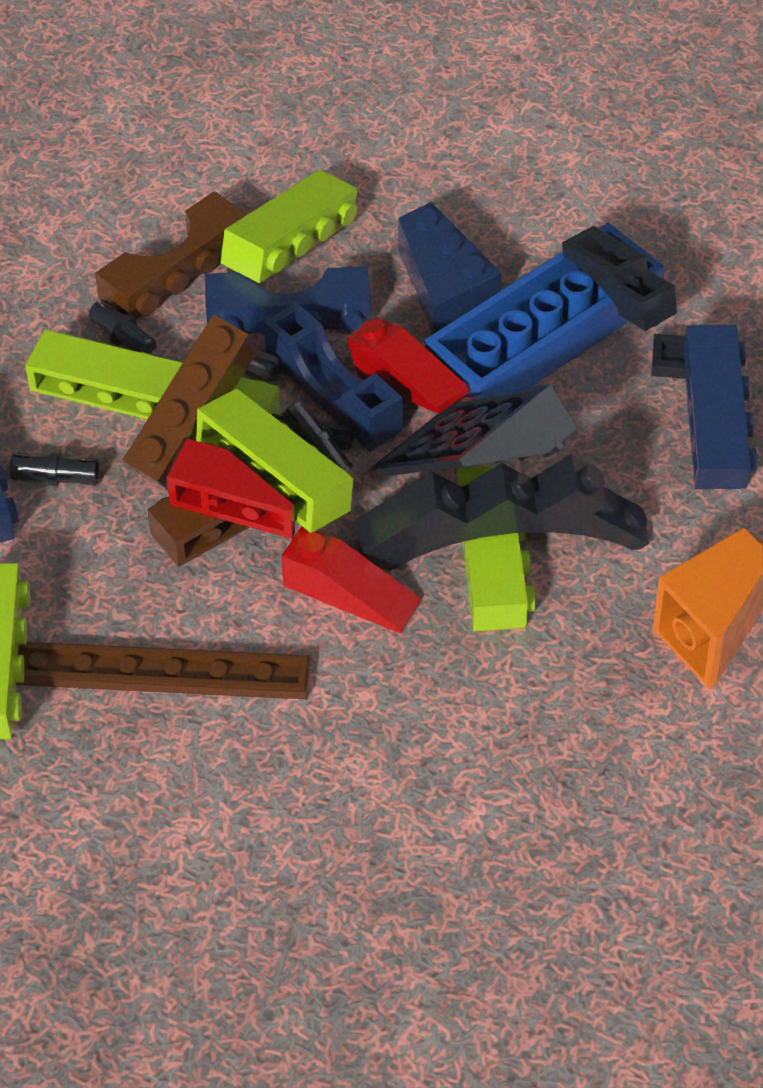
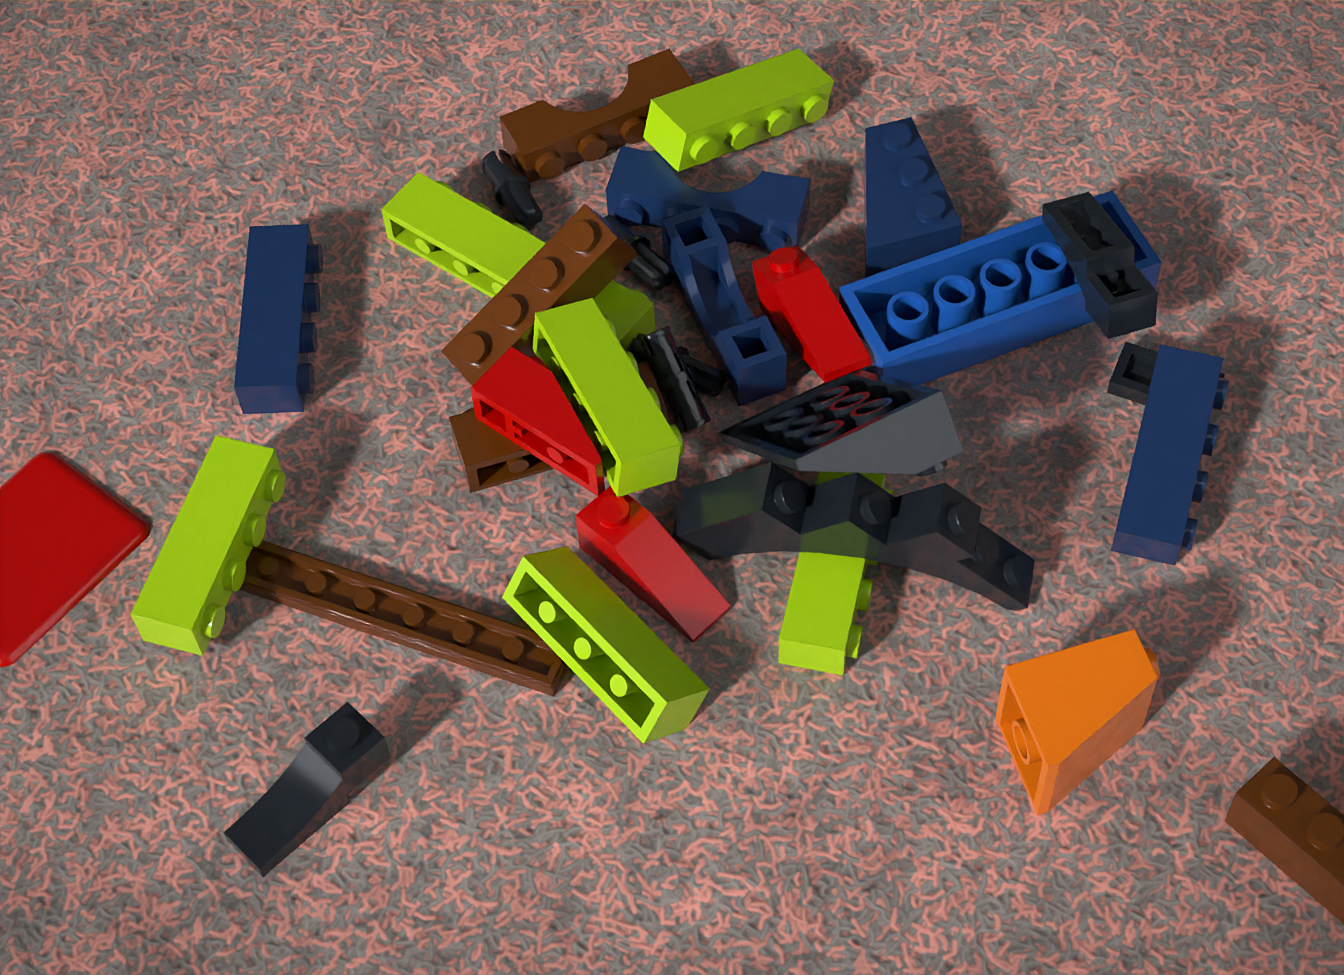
camera: 20 degrees right, 5 degrees up
(54, 468) = (375, 339): black pin -> none
(143, 812) = (310, 790): none -> black slope
(337, 645) = (605, 643): none -> lime brick

